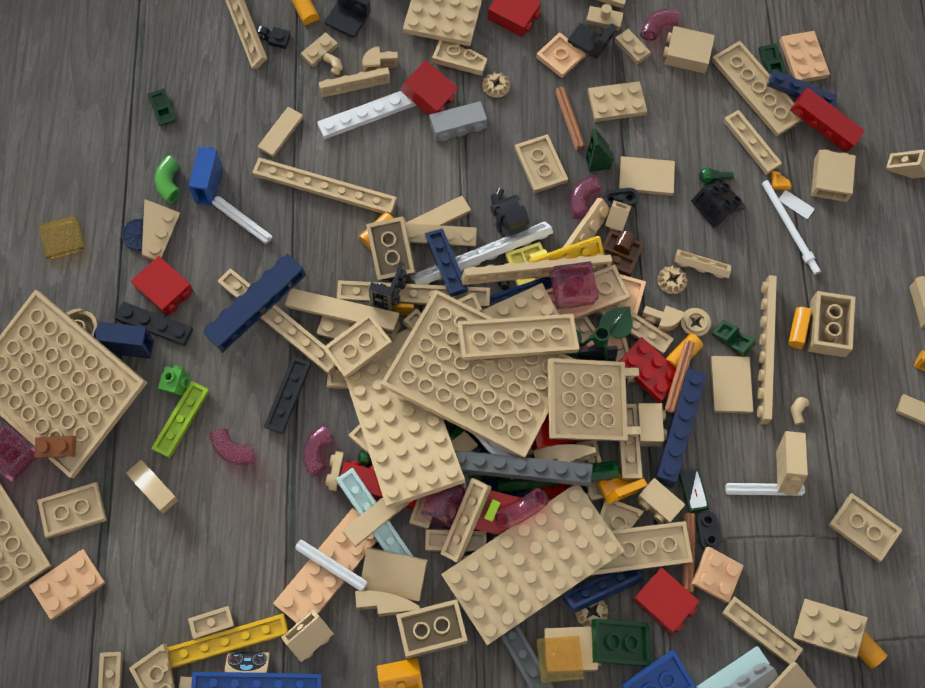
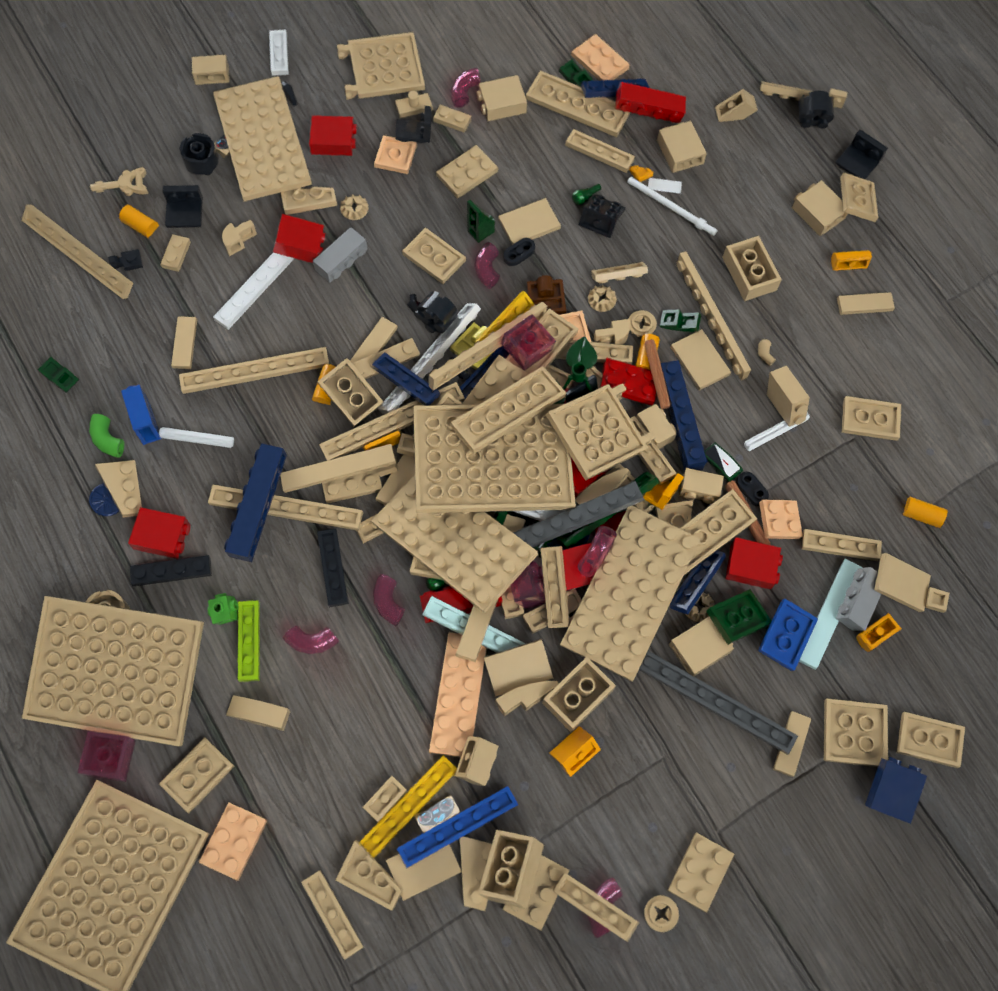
camera: 30 degrees left, 0 degrees up
(55, 446) = (149, 726): dark orange plate -> none
(61, 237) = (34, 539): clear yellow tile -> none
(125, 339) = (155, 596): dark blue brick -> none
(331, 565) = (461, 690): white axle -> none
(335, 62) = (196, 256): tan arm -> none
(336, 463) = (412, 601): tan plate -> none
(354, 82) = (226, 265): tan plate -> none
(357, 345) = (372, 490): tan plate -> none
(386, 297) = (372, 435): black bracket -> none
(492, 509) = (572, 565): lime tile -> none
(559, 659) = (699, 657): clear yellow tile -> none
(570, 118) = (434, 204): nougat axle -> none
(590, 223) = (507, 285): tan plate -> none
(618, 216) = (527, 267): tan brick -> none
(799, 327) = (728, 284): light orange brick -> none
(830, 628) = (893, 512): tan plate -> none

